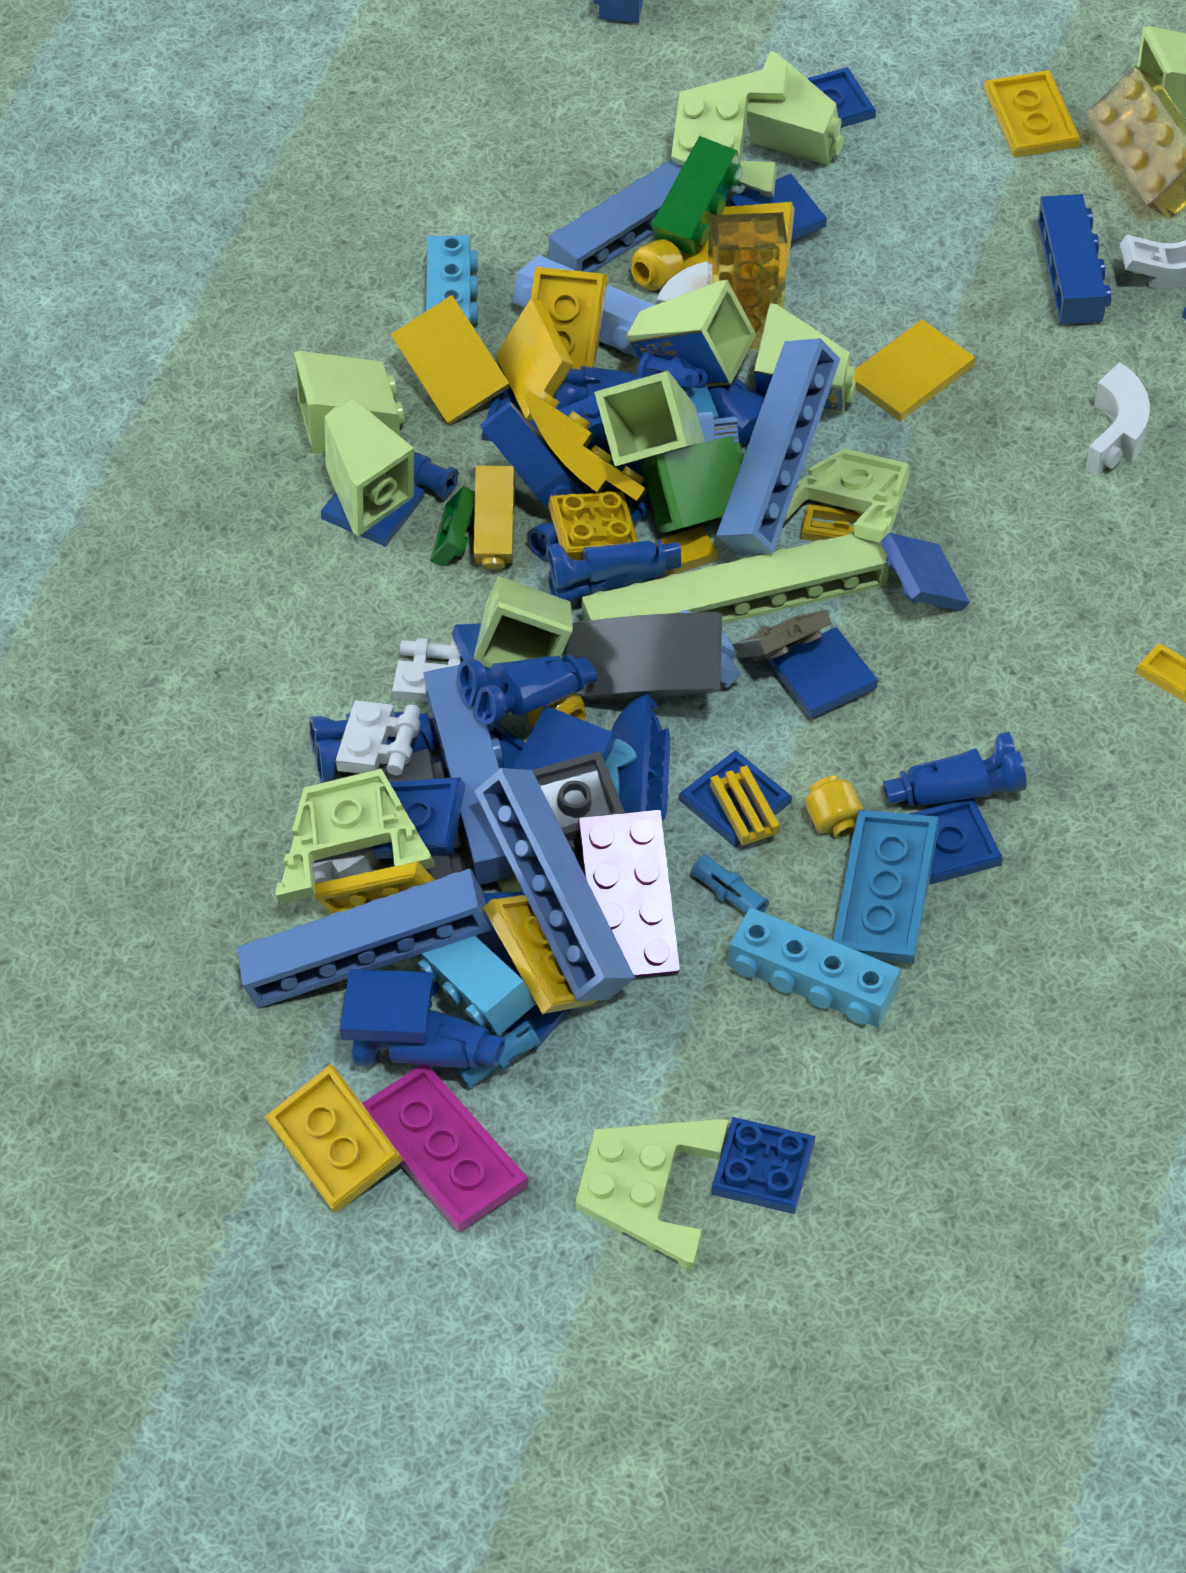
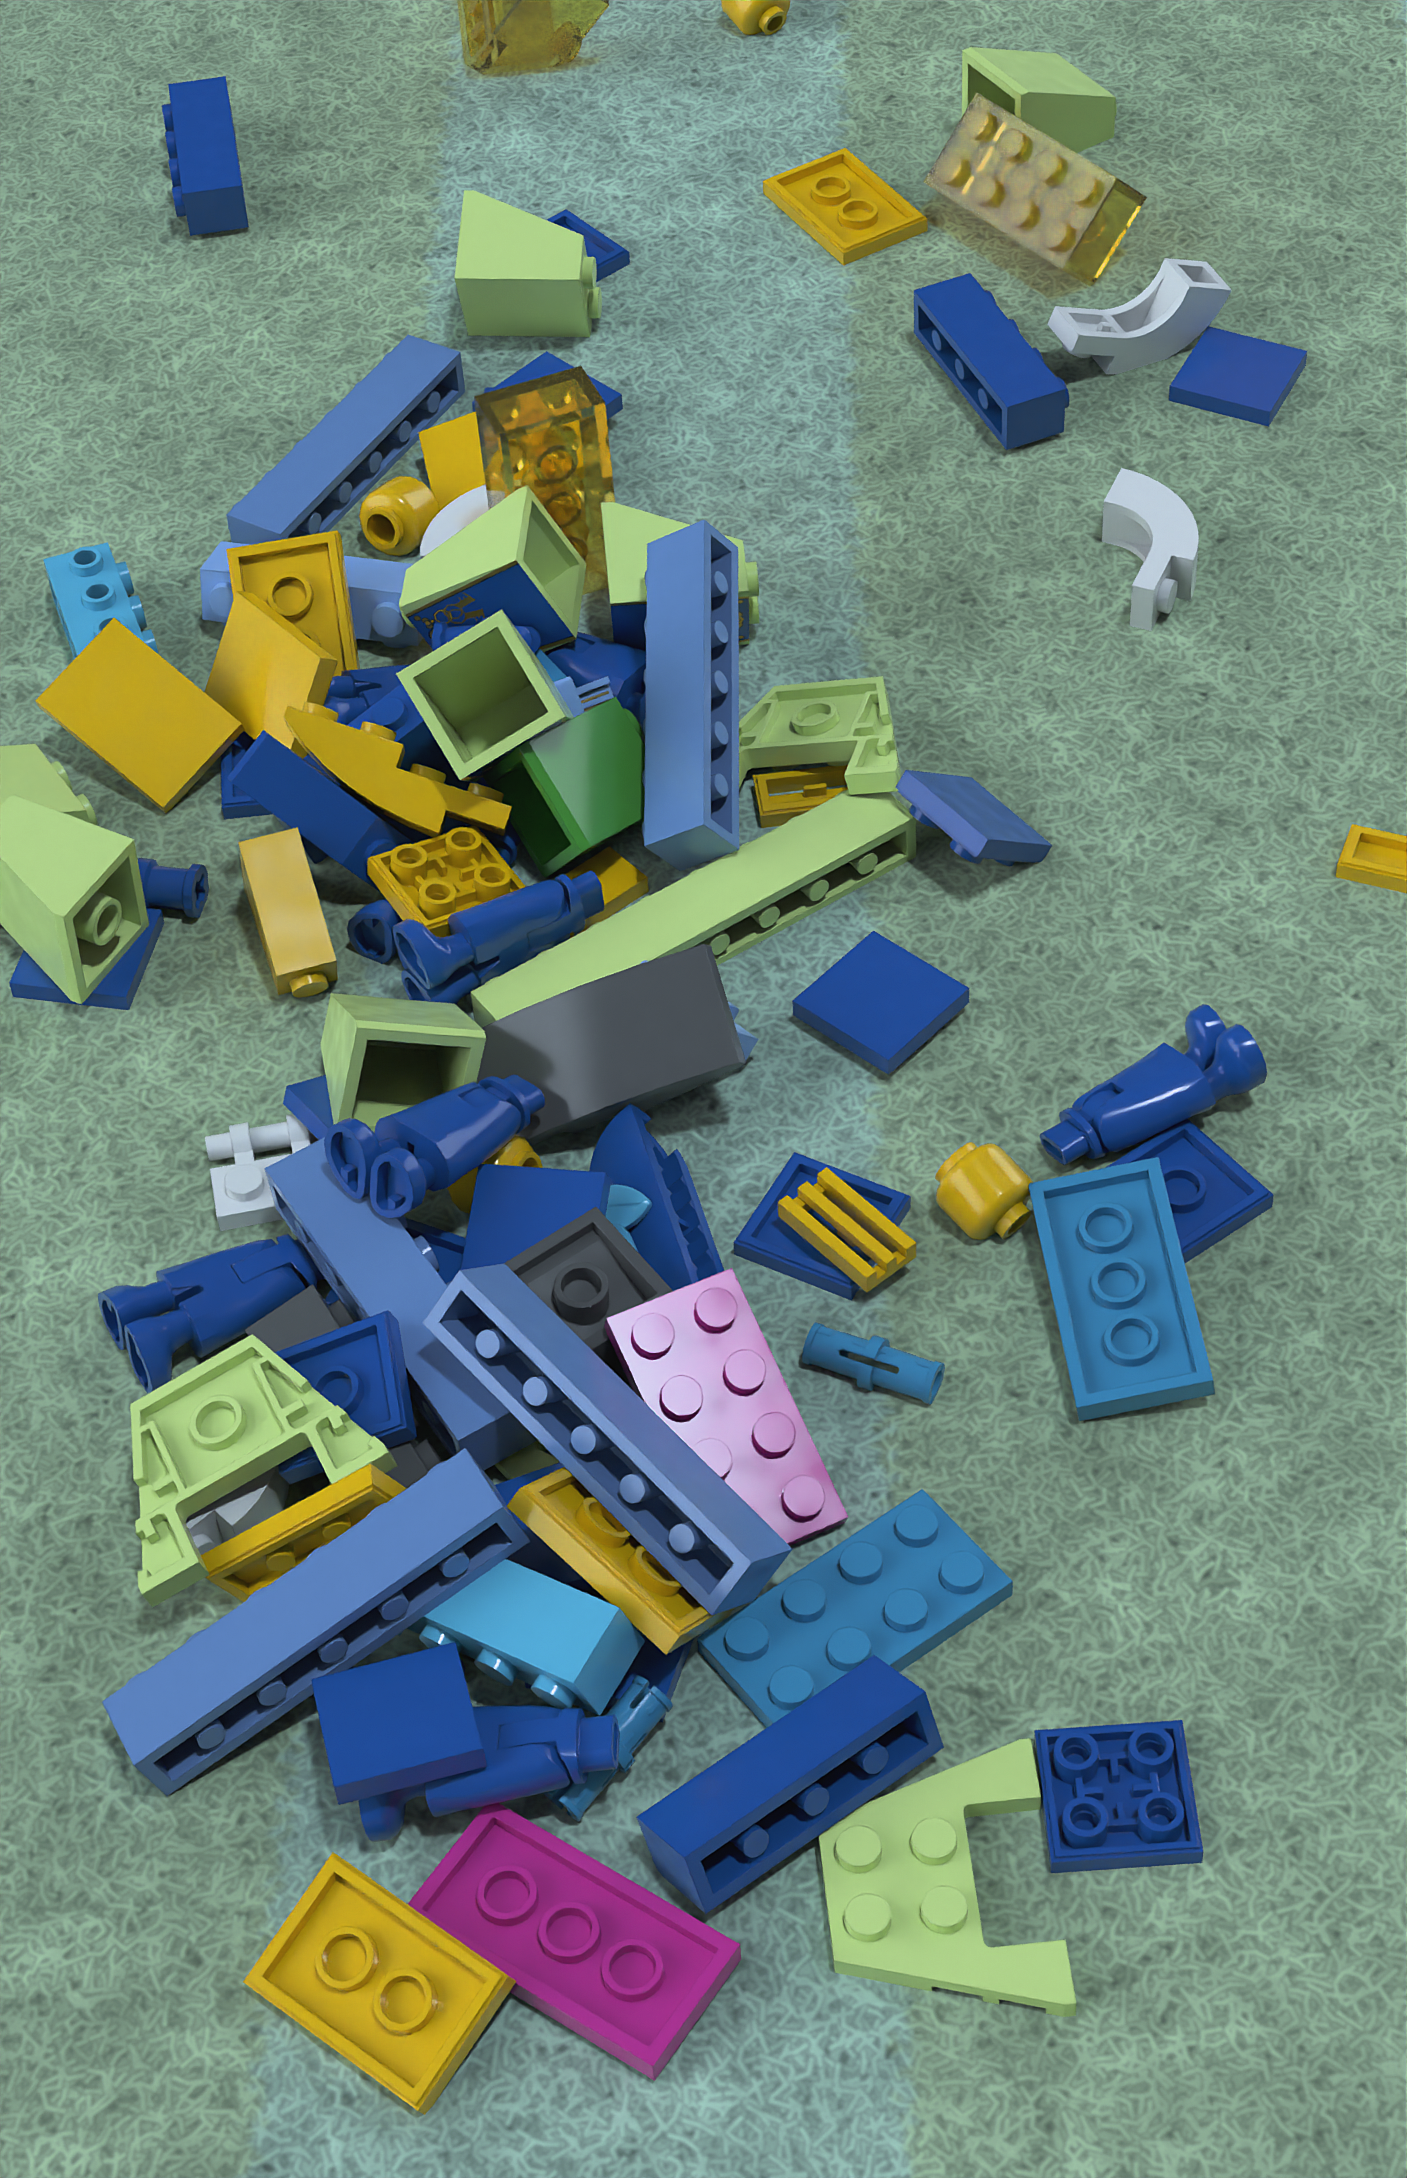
camera: 15 degrees left, 5 degrees down
(367, 734) = (206, 1298): white plate -> none
(451, 533) = (228, 950): green plate -> none
(588, 1102) = (790, 1783): none -> blue brick
(662, 1026) = (878, 1593): none -> dark azure plate
(696, 194) = (429, 402): green brick -> none
(720, 115) = (416, 309): yellowish green wing -> none
(779, 637) = (798, 966): dark tan plate -> none
(813, 968) = (1062, 1447): medium azure brick -> none
(912, 370) = (826, 560): yellow tile -> none

